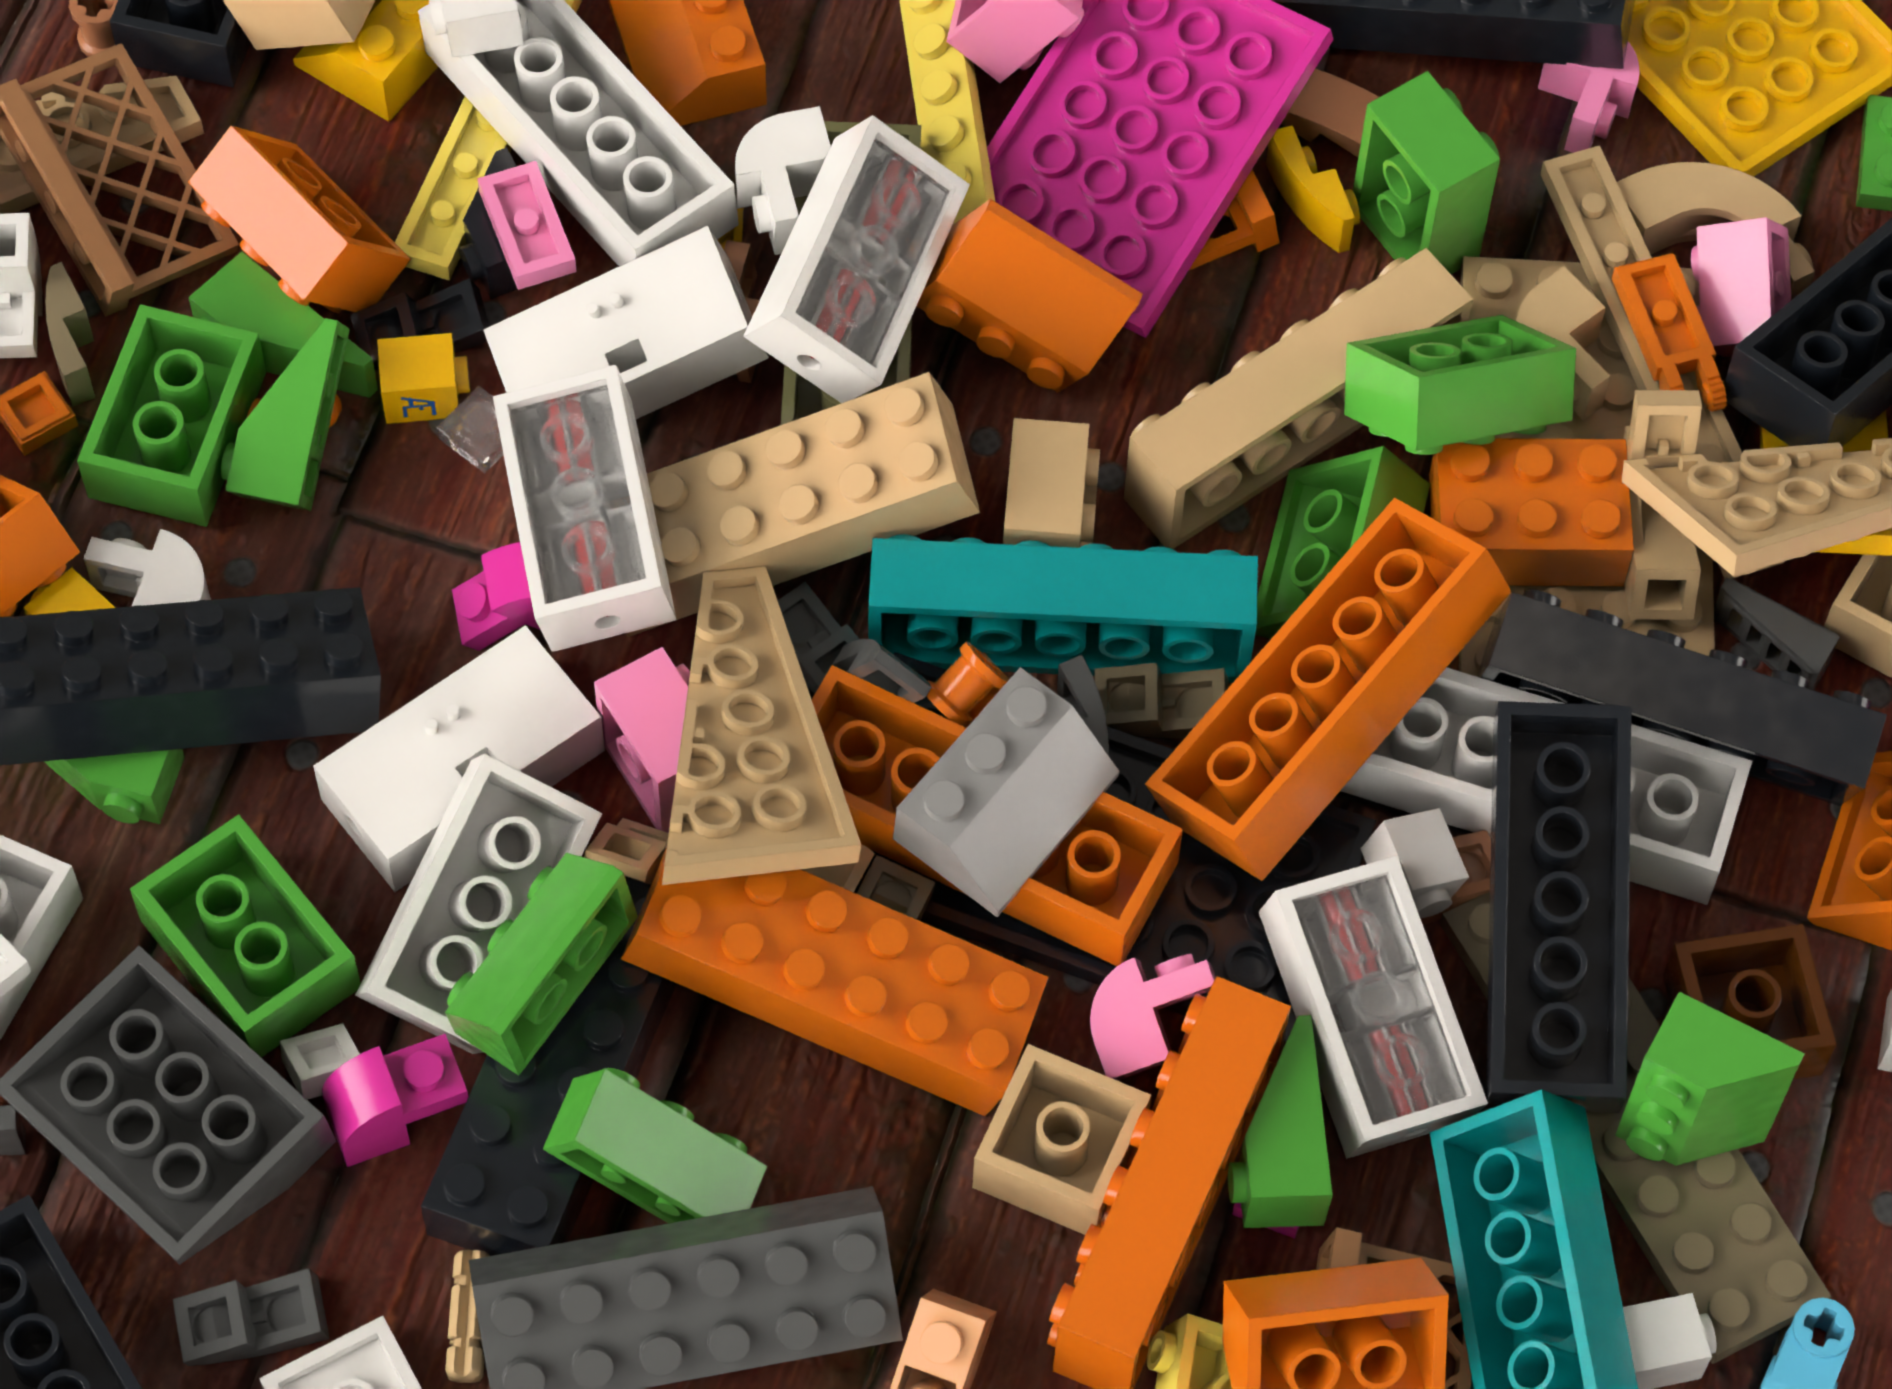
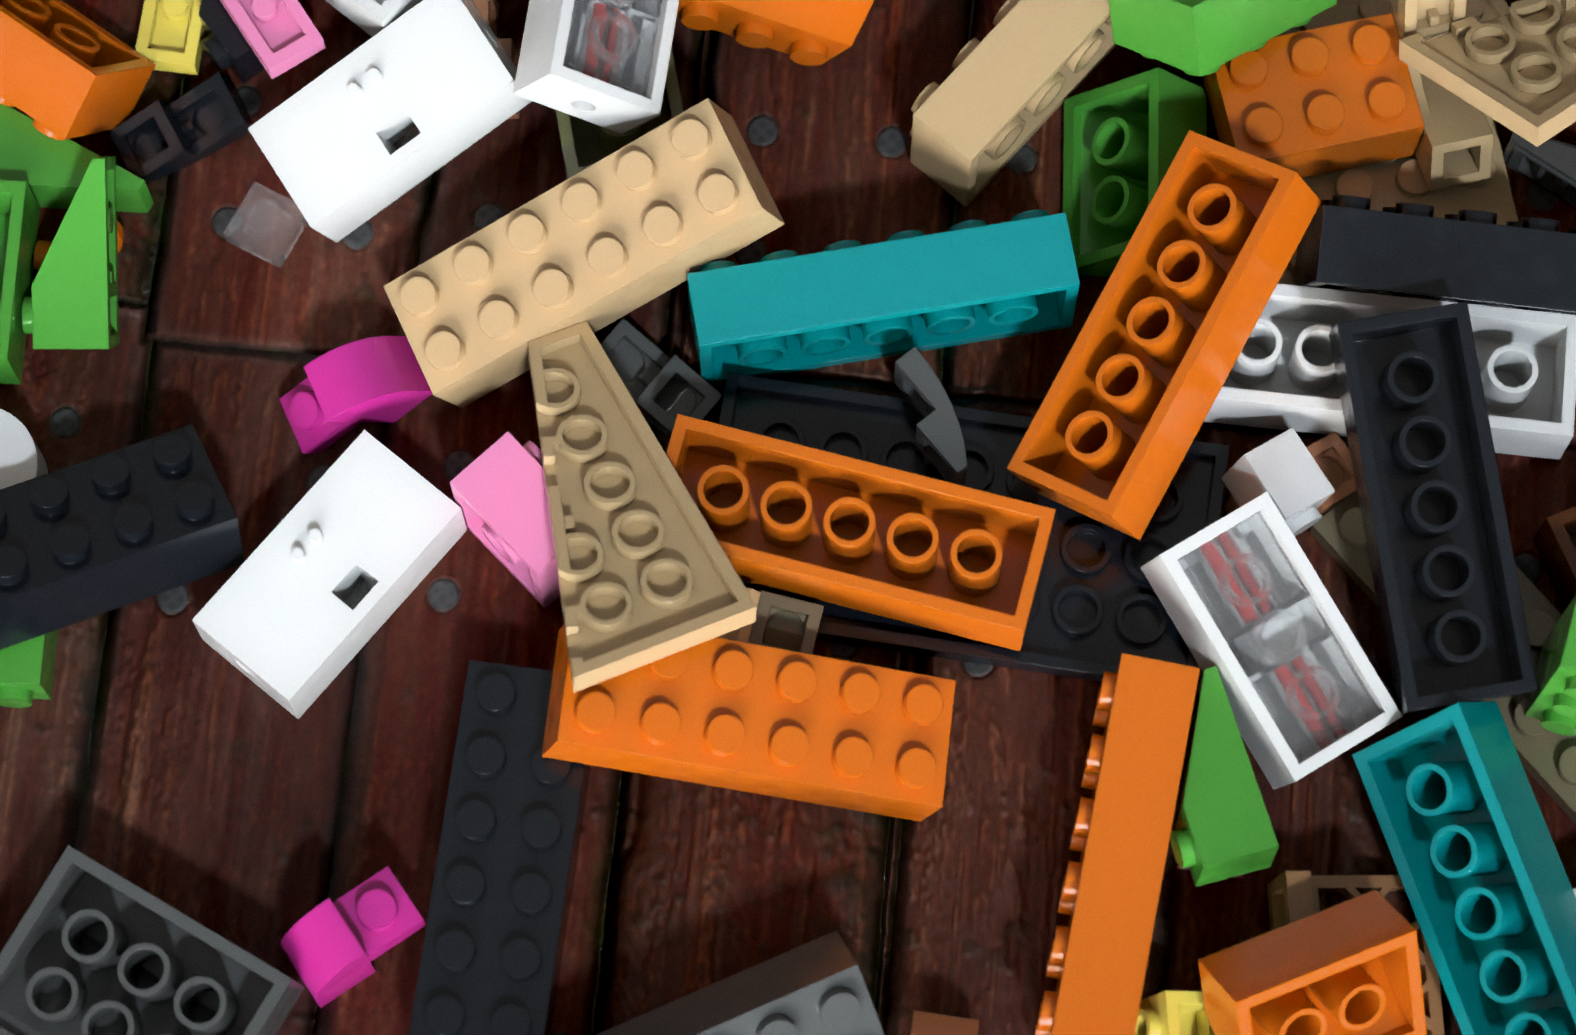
camera: 10 degrees left, 10 degrees up
(246, 937) = (168, 806): bright green brick -> none
(315, 1057) = (269, 910): white plate -> none
(420, 377) = (196, 185): yellow brick -> none
(469, 882) = (389, 729): white brick -> none
(542, 960) = (467, 781): bright green slope -> none
(583, 508) = (396, 304): brick -> none
(630, 848) = (523, 637): tan slope -> none
(651, 1150) = (618, 942): bright green brick -> none
(880, 667) = (725, 406): dark grey slope -> none
(967, 686) = (820, 408): orange piece -> none
(1005, 793) = (880, 514): light grey slope -> none
(1051, 484) = (844, 180): tan brick -> none
(1058, 1139) = (1004, 839): tan brick -> none
(1127, 1016) = (1038, 696): bright pink brick -> none
(1157, 704) = (997, 367): dark tan slope -> none

